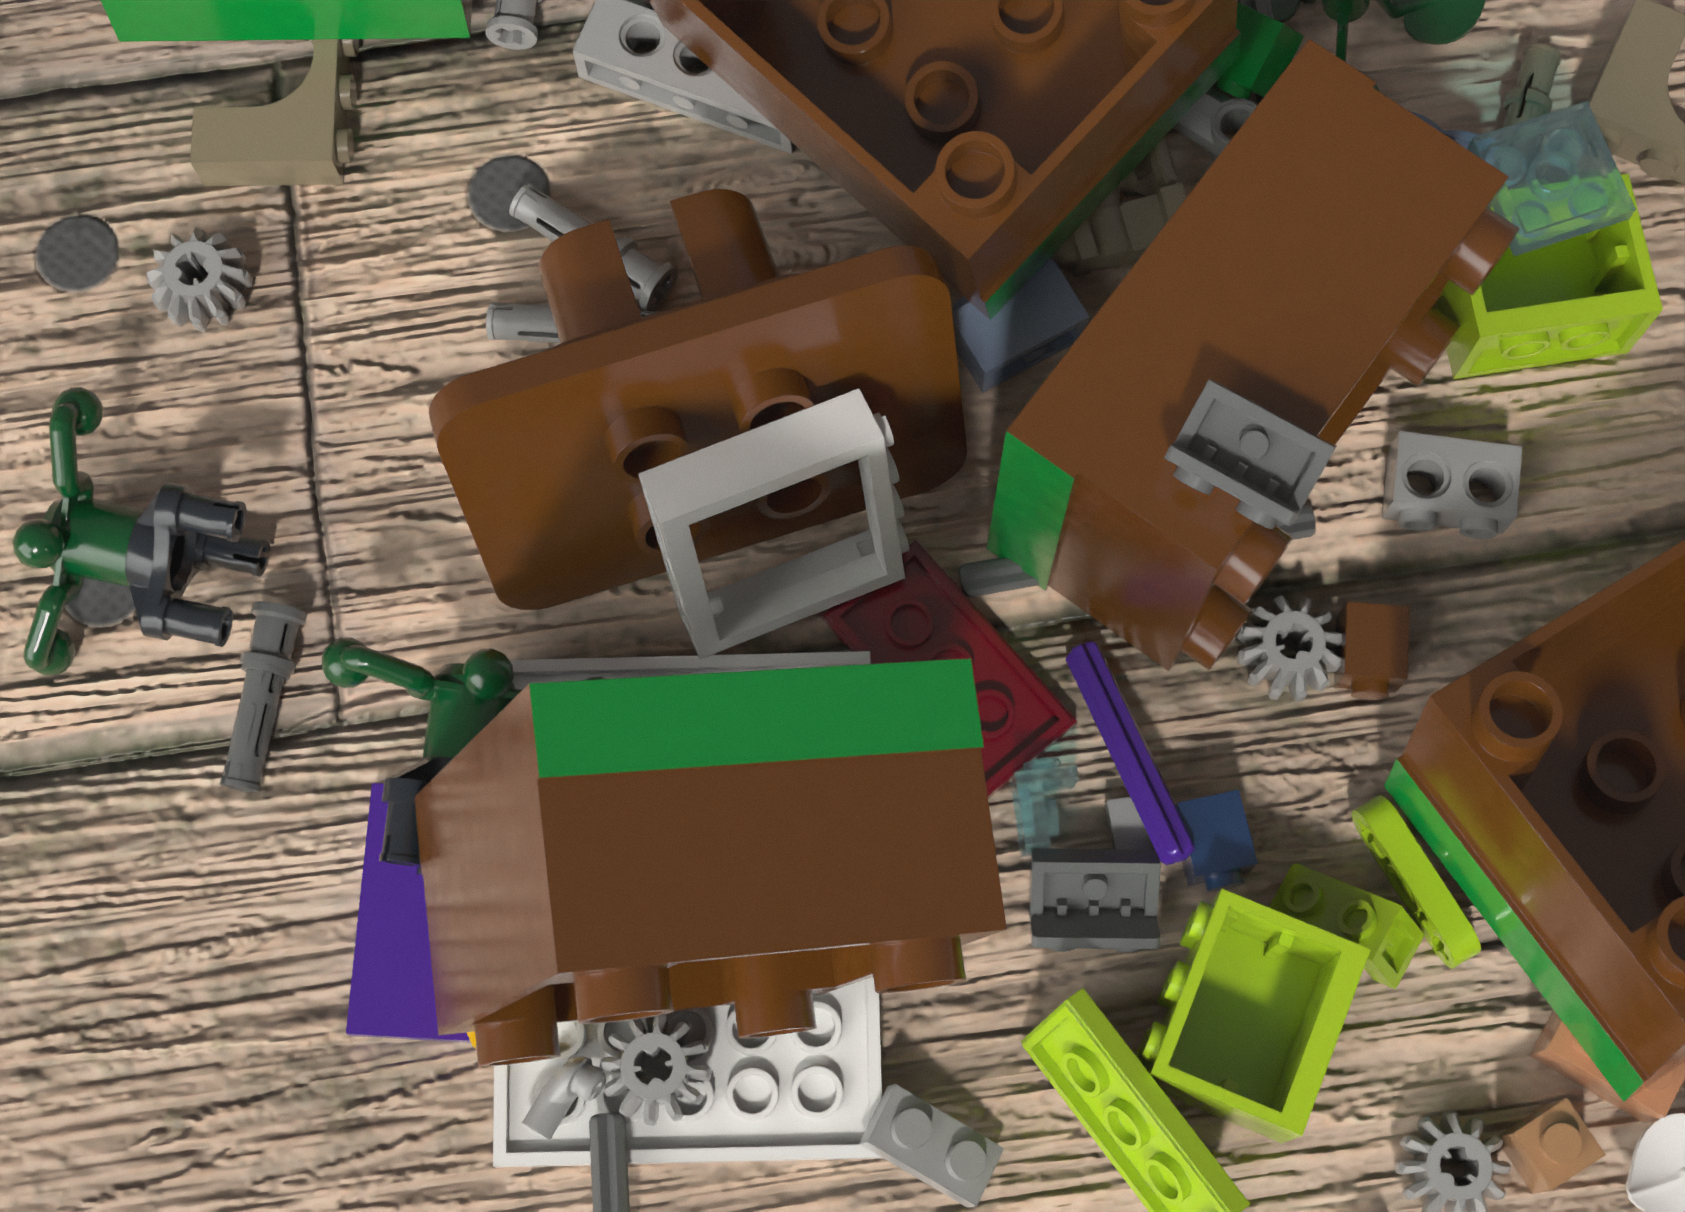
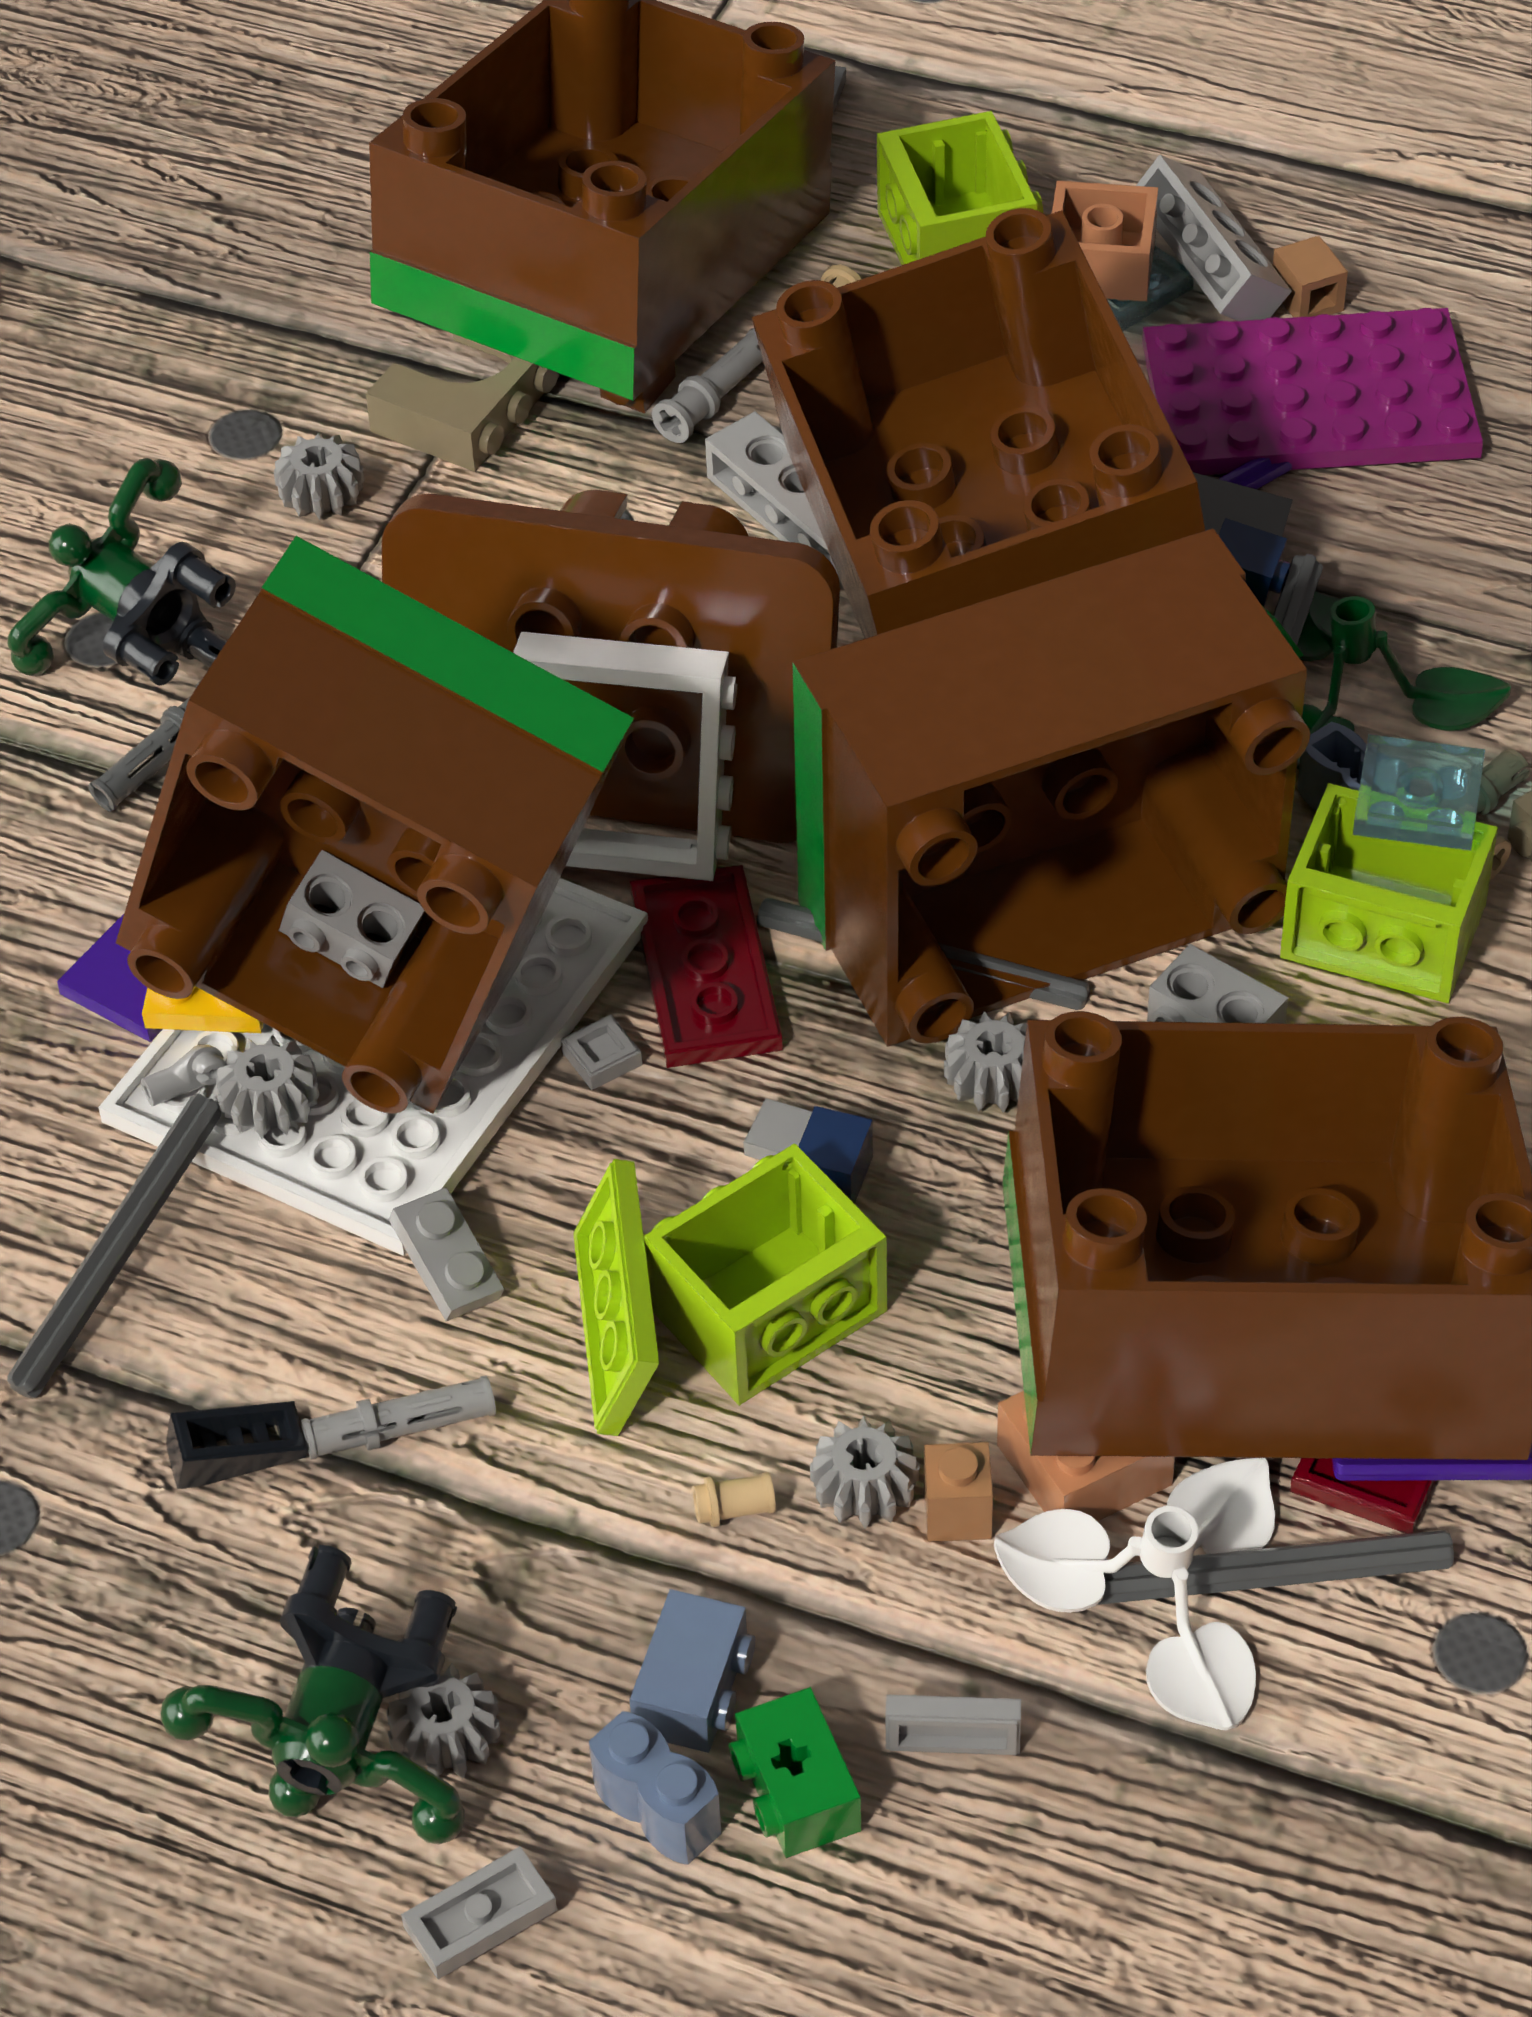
camera: 30 degrees right, 25 degrees down
(1034, 815) = (703, 1067): clear light blue bracket -> none
(1094, 899) = (699, 1144): dark grey bracket -> none
(1130, 753) = (804, 1066): dark purple axle -> none
(1249, 455) = (961, 733): dark grey bracket -> none
(1353, 916) = (919, 1278): lime bracket -> none
(1416, 881) = (982, 1265): lime beam -> none

